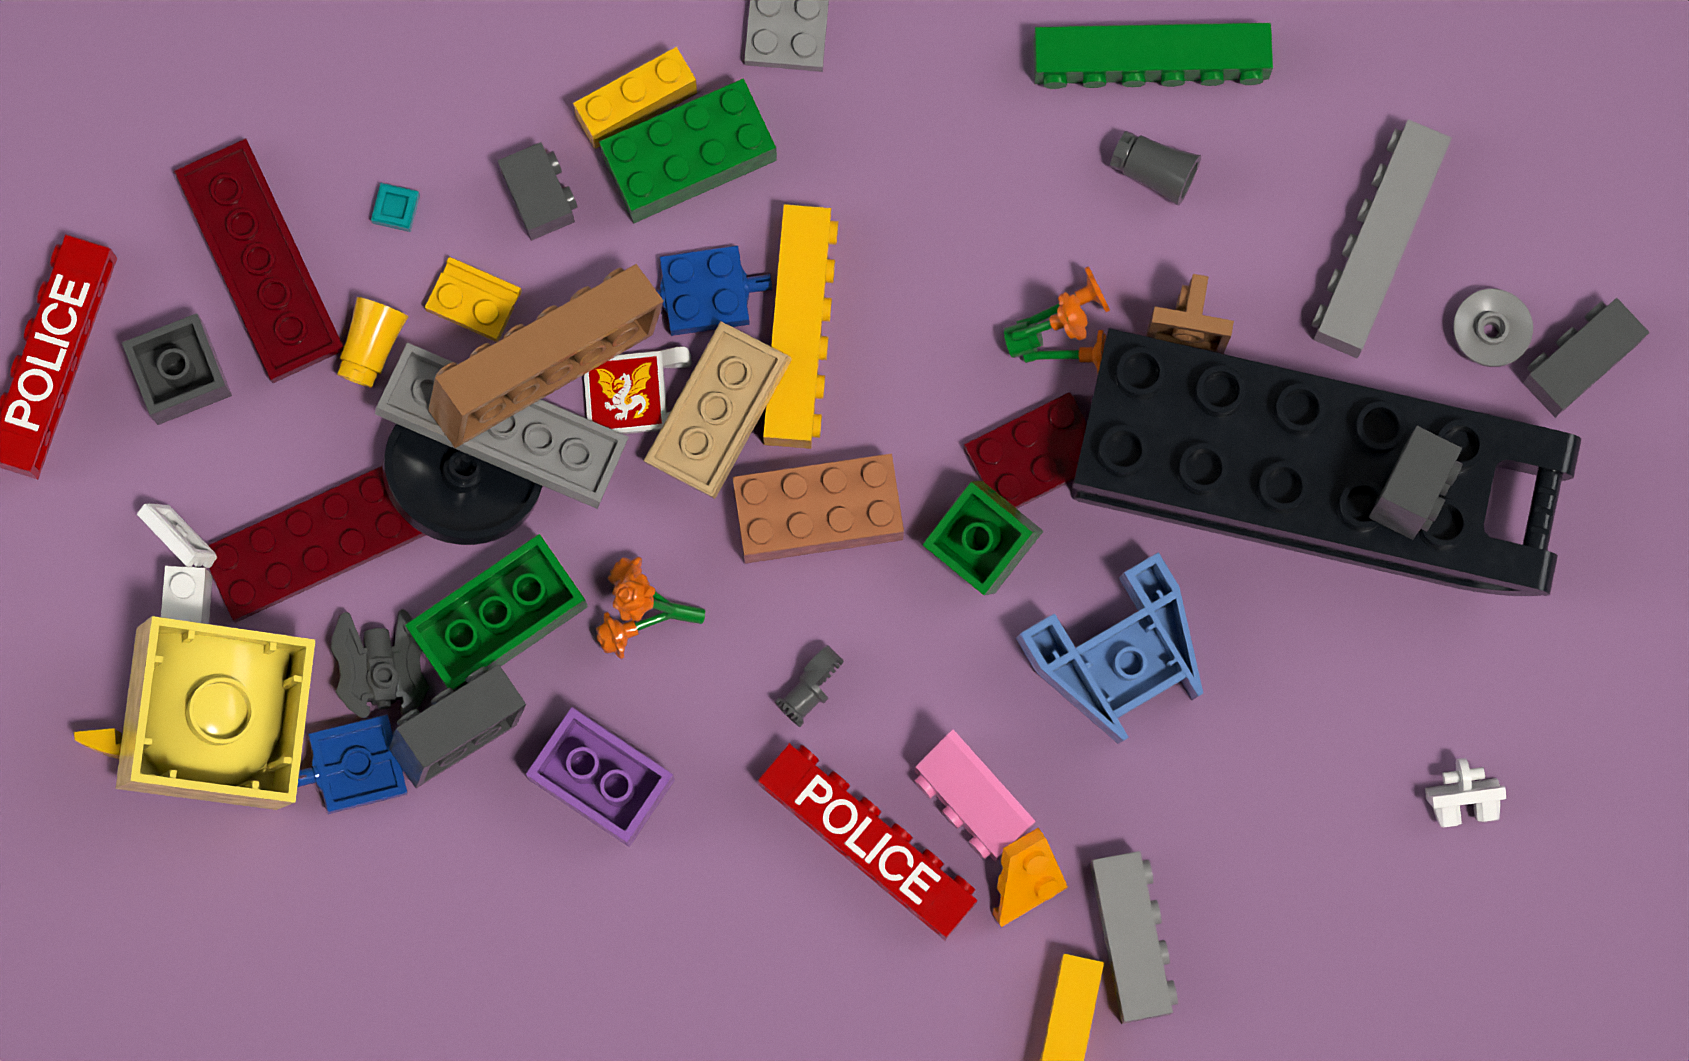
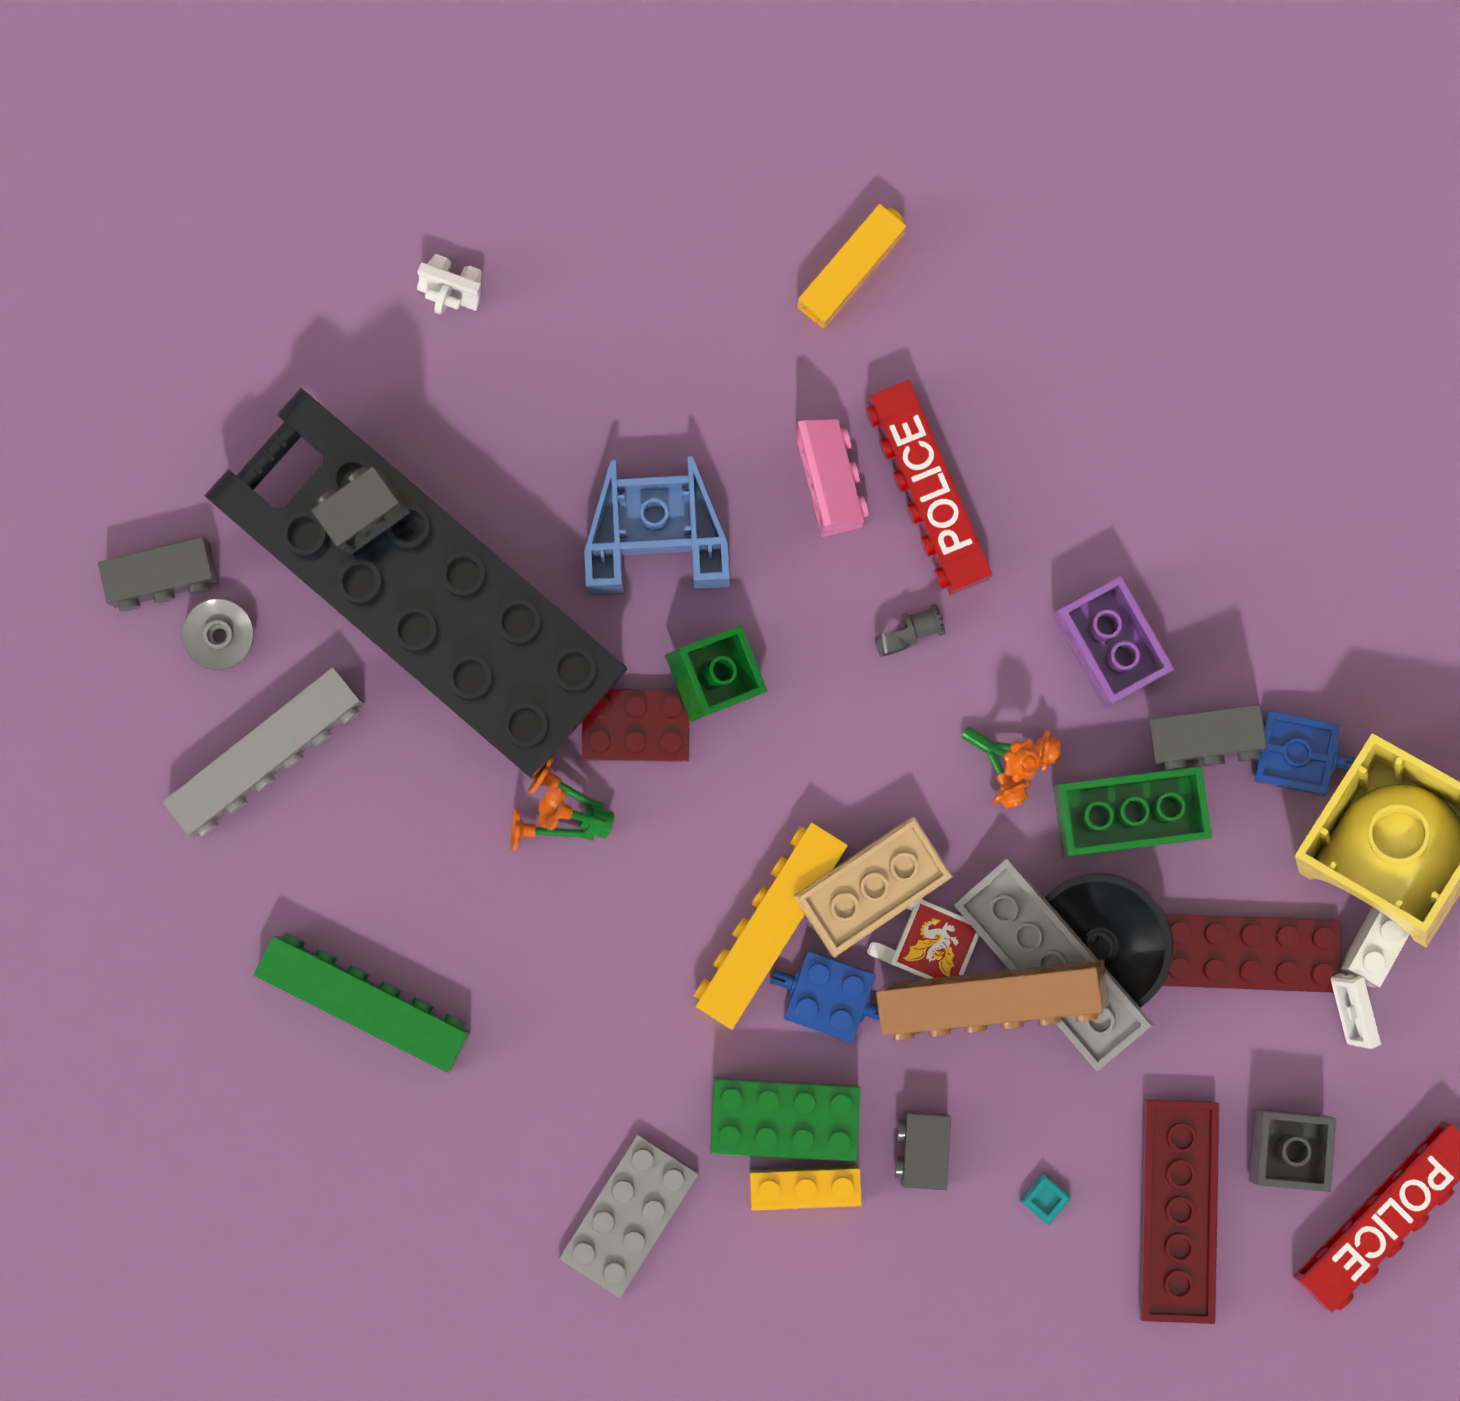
camera: 155 degrees left, 5 degrees up
(369, 341) = (1123, 1093): yellow plant -> none
(378, 670) = (1242, 819): dark grey piece -> none
(473, 299) = (1020, 1087): yellow plate -> none
(818, 508) = (833, 767): nougat brick -> none
(1027, 877) = (822, 395): light orange wing -> none
(1132, 938) = (764, 311): light grey brick -> none
(1156, 165) = (412, 907): dark grey plant -> none
(1186, 322) = (449, 773): medium nougat bracket -> none

